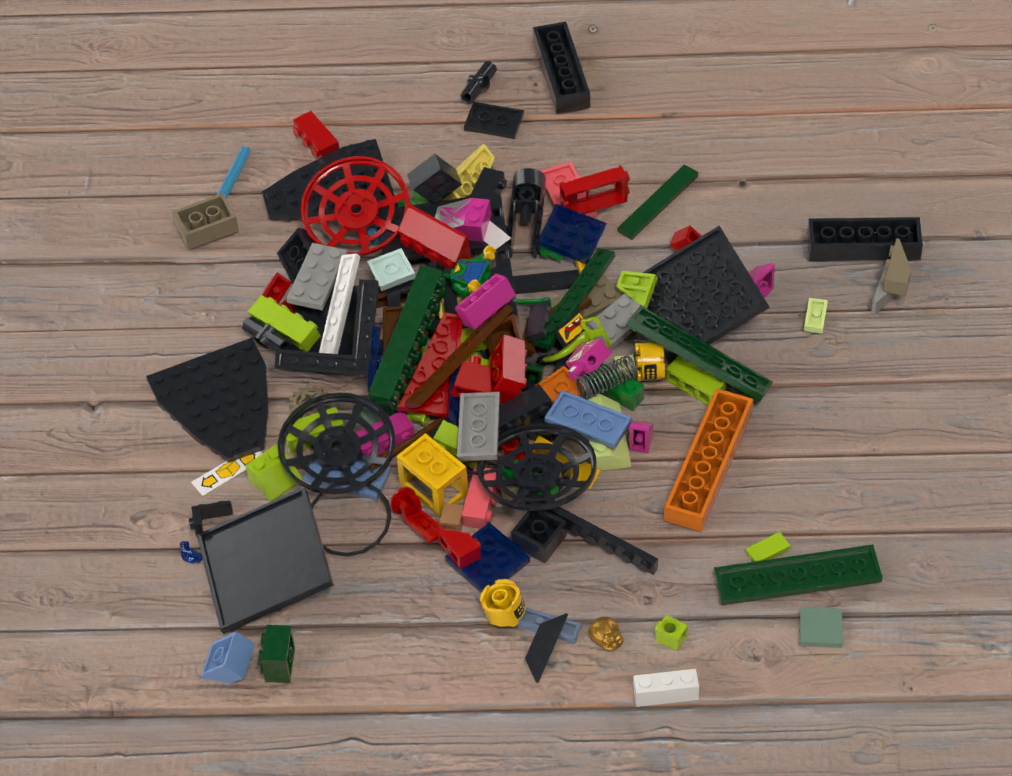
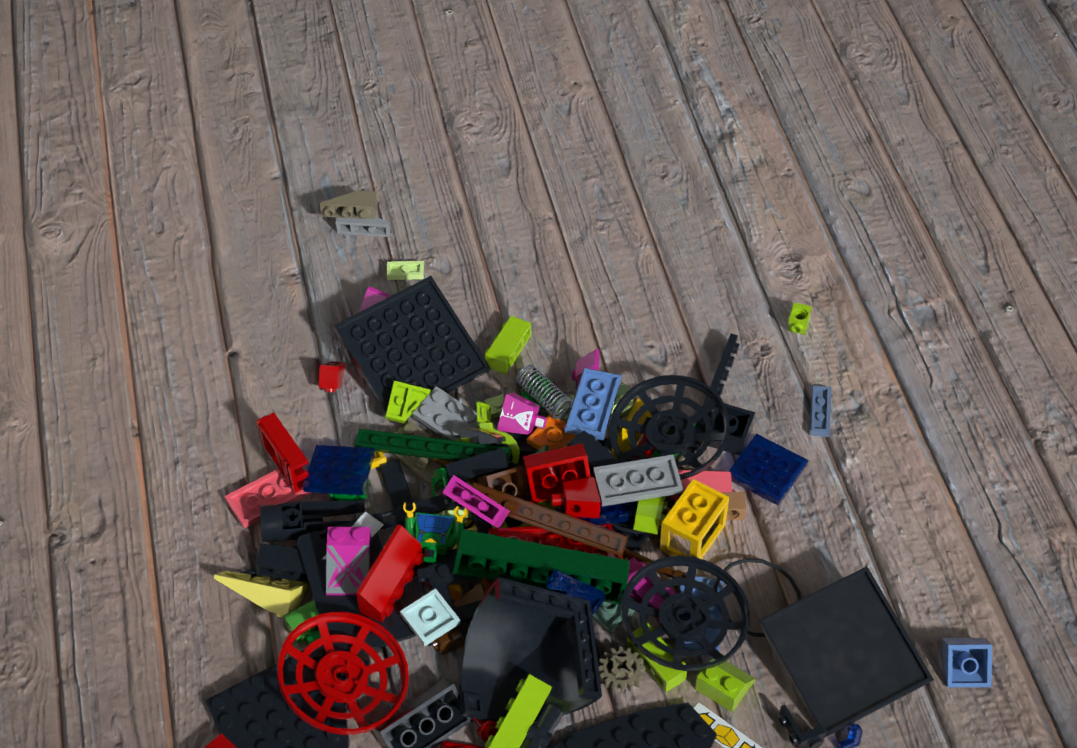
camera: 105 degrees left, 0 degrees up
(277, 653) = (950, 609): dark green brick -> none
(316, 277) = (456, 688): light grey plate -> none
(339, 304) = (493, 656): white tile -> none
(409, 506) = (741, 534): red piece -> none
(434, 179) = (298, 592): black brick -> none
(460, 546) = (772, 482): red slope -> none
(478, 82) = (102, 611): black piece -> none
(494, 120) = (157, 589): black tile -> none
(503, 603) = (818, 449): yellow brick -> none
(543, 645) = (844, 408): black sticker -> none
(561, 67) = (75, 530): black brick -> none
(606, 633) = (816, 366): pearl gold hair -> none
(650, 361) = (498, 375): yellow brick -> none
(657, 202) = (257, 409): dark green tile -> none
(666, 687) = (858, 312): white brick -> none
(699, 353) = (487, 333): dark green plate -> none
(708, 460) = (604, 317): orange brick -> none
(768, 548) = (683, 270): lime tile -> none
(797, 574) = (707, 247): dark green plate -> none
(821, 627) = (752, 226): sand green tile -> none
(863, 238) = (307, 243): black brick -> none

